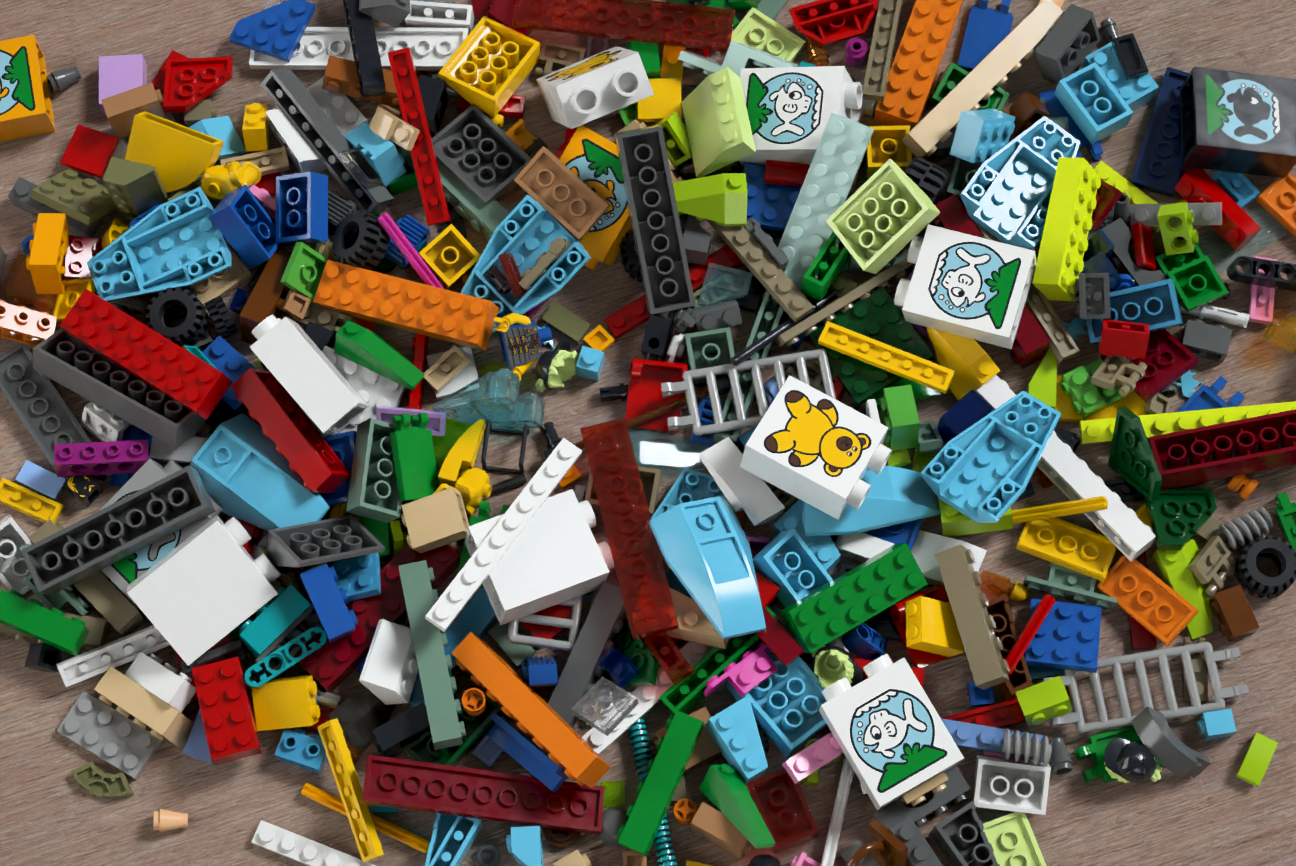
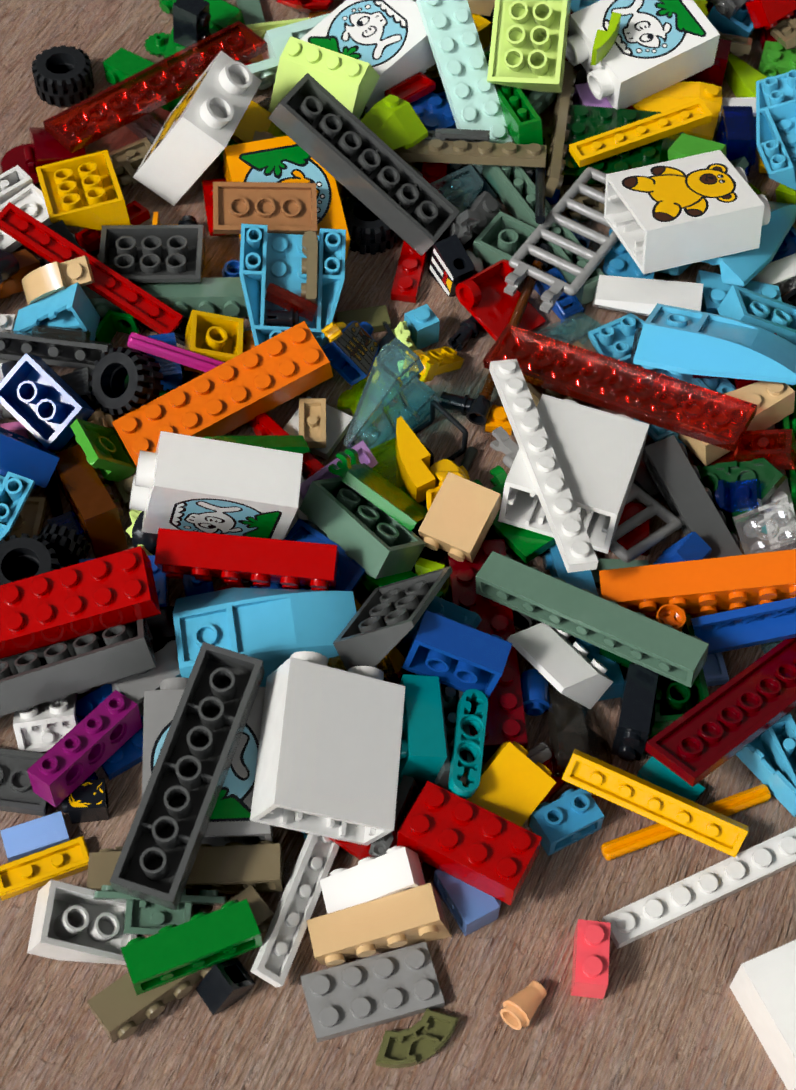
camera: 50 degrees left, 15 degrees down
(225, 833) = (590, 959): none -> coral brick
(295, 304) = (119, 479): medium nougat plate -> none
(563, 397) = (438, 362): none -> yellow plate
(599, 339) = (402, 305): light orange plate -> none
(914, 271) = (605, 39): none -> lime slope

